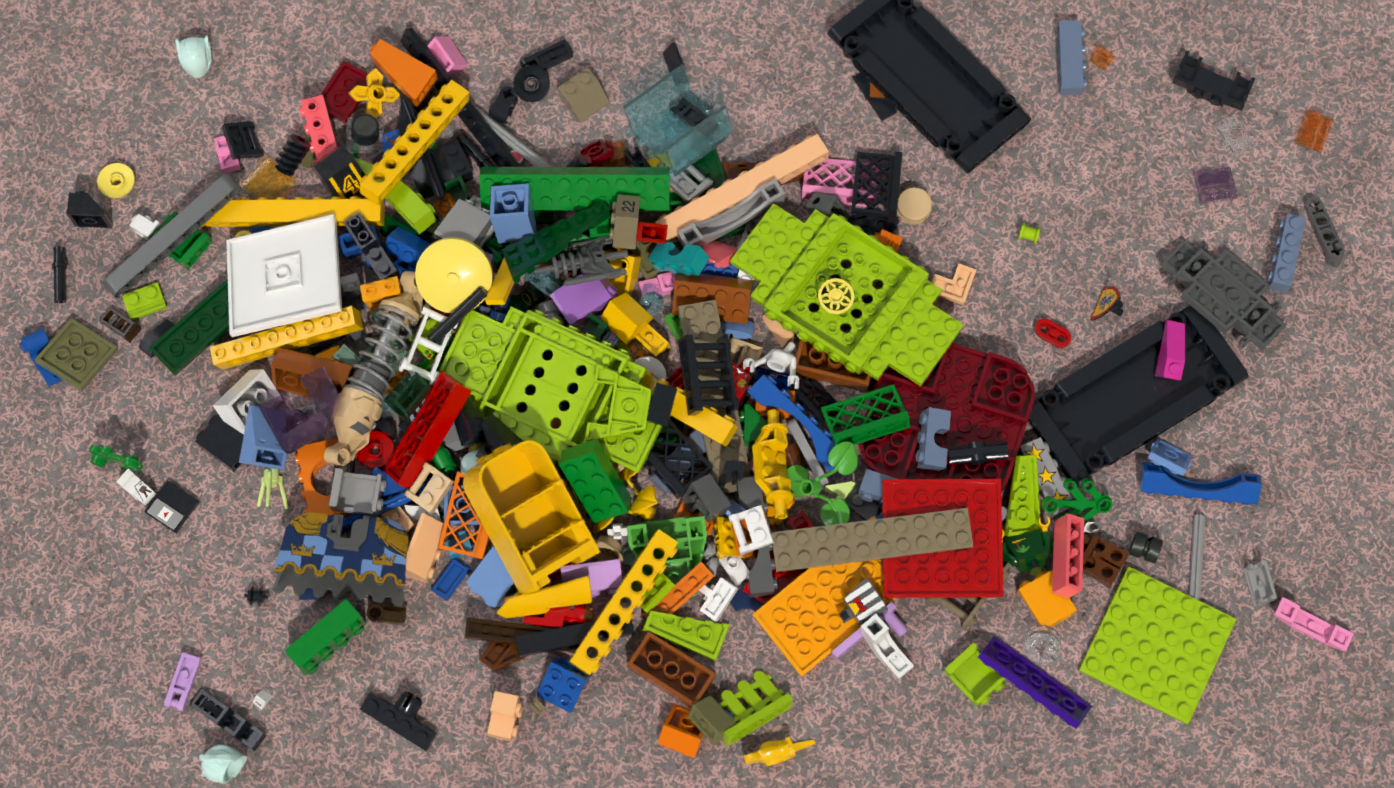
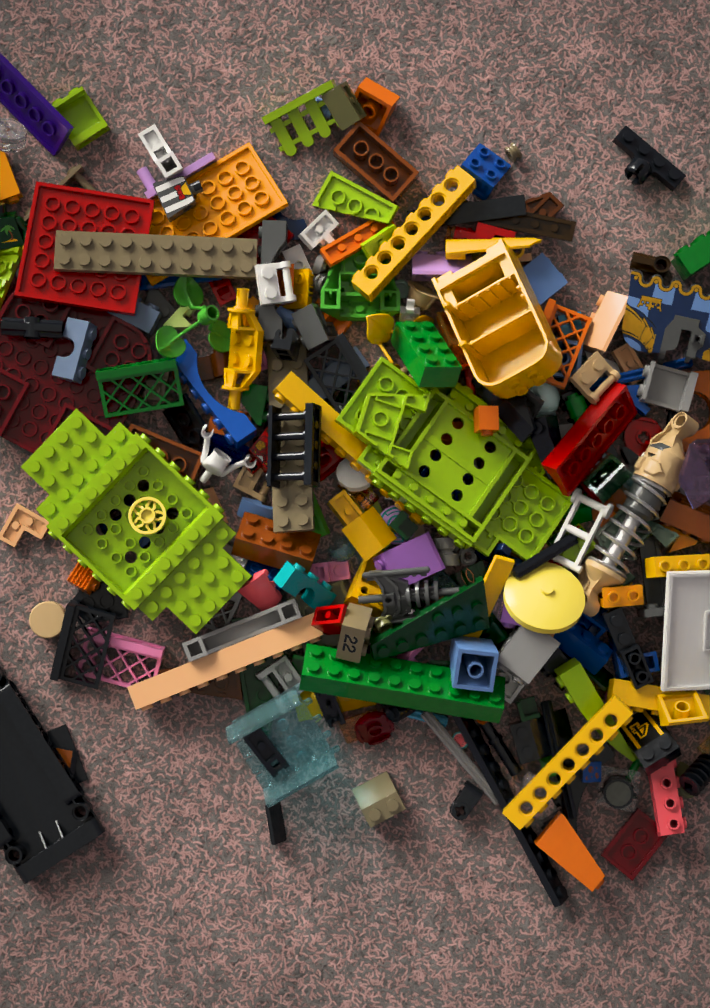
camera: 170 degrees left, 15 degrees up
(315, 200) = (680, 708): none -> yellow slope
(374, 83) = (603, 843): yellow plant -> none
(445, 205) = (539, 693): orange tile -> none
(447, 54) = (519, 871): bright pink brick -> none
(450, 579) = (582, 292): blue tile -> none
(504, 711) = (544, 147): light nougat brick -> none
(528, 426) = (486, 420): none -> orange brick
(540, 80) = (433, 812): black dish -> none
(549, 56) = (412, 850): black plate -> none
(600, 234) = (382, 624): none -> olive plate
(661, 405) = (346, 416): black slope -> none
(776, 751) = (286, 73): yellow animal -> none
(806, 450) = (205, 364): light grey beam -> none
(825, 204) = (142, 626): dark grey torso -> none

